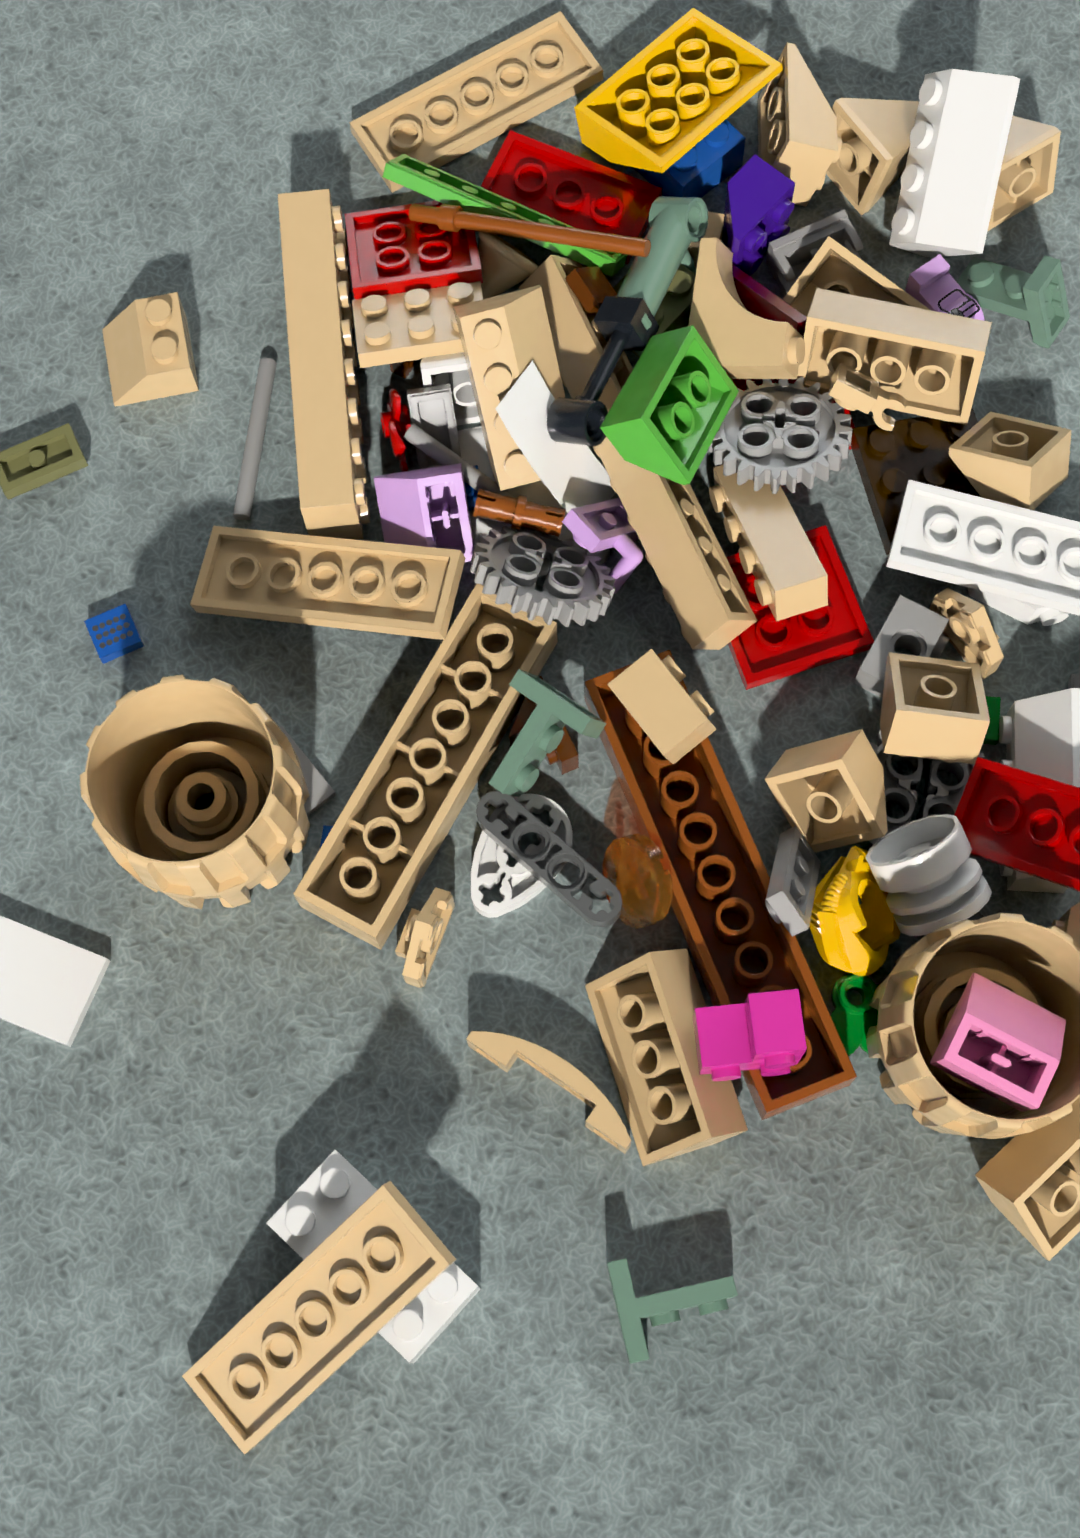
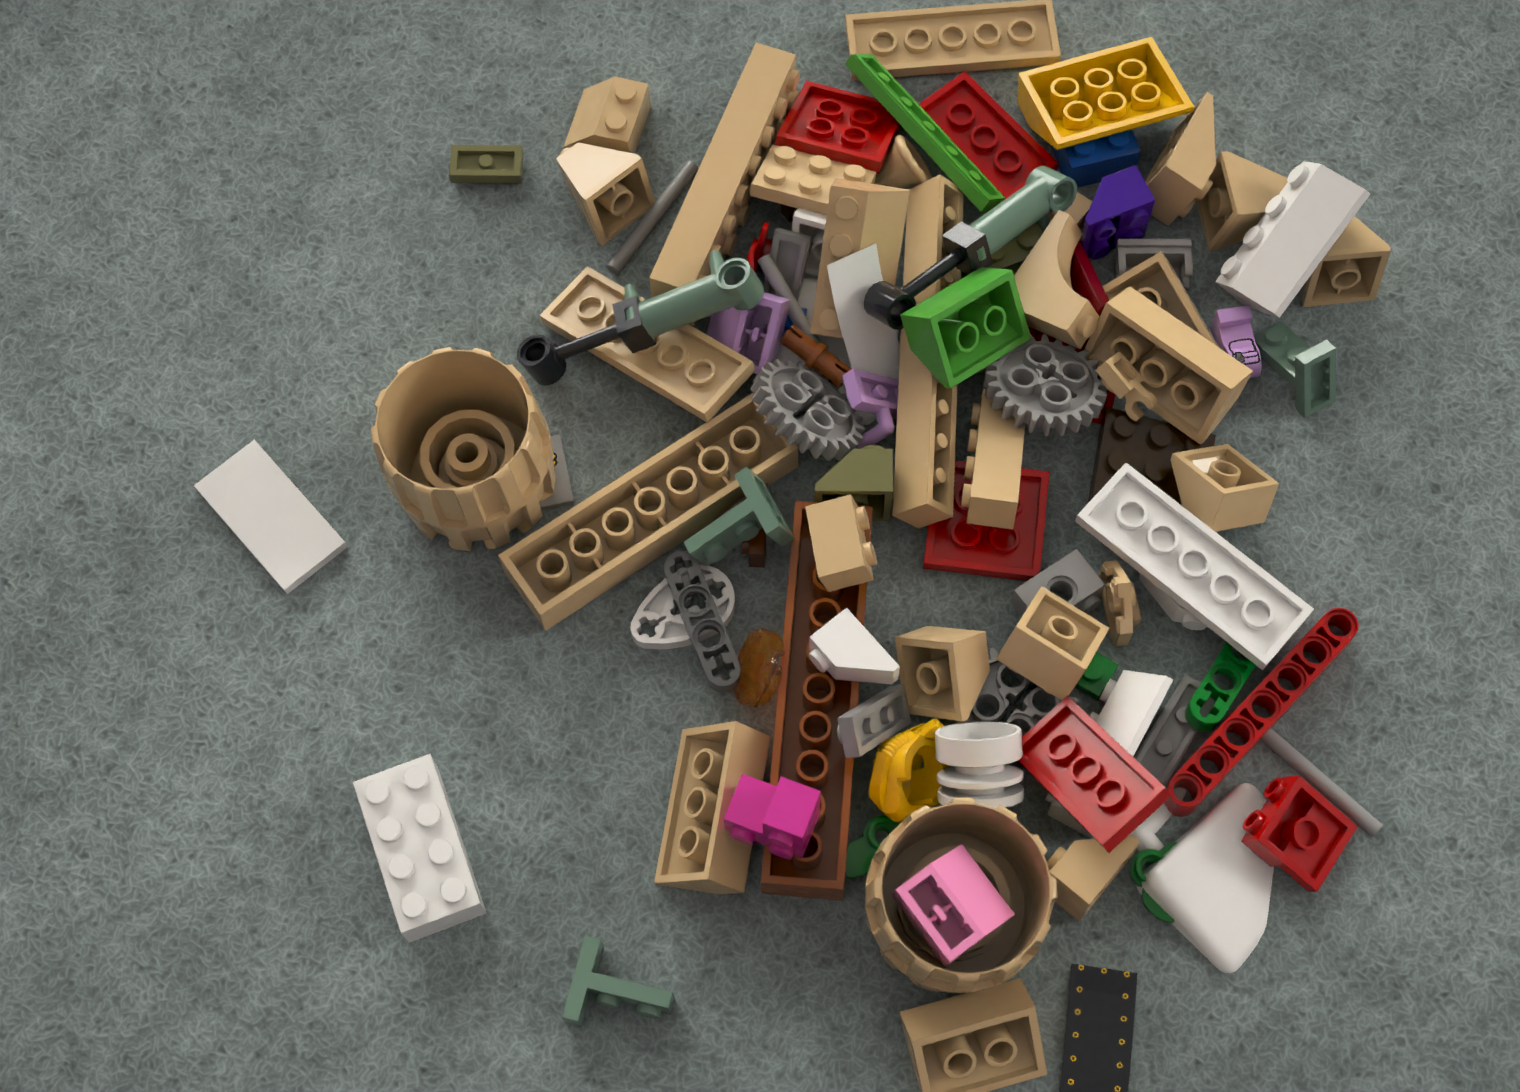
camera: 25 degrees right, 5 degrees down
(114, 633) = (475, 312): blue tile -> none
(188, 427) = (607, 187): none -> tan slope
(316, 561) = (639, 322): none -> piece
(318, 1317) = (353, 865): tan plate -> none
(424, 935) = (581, 634): tan plate -> none
(453, 219) = (883, 118): dark orange bar -> none
(504, 1051) = (597, 748): tan slope -> none
(590, 287) = (957, 209): reddish brown tile -> none
(644, 621) = (864, 475): none -> olive slope
(735, 818) = (851, 652): none -> white slope

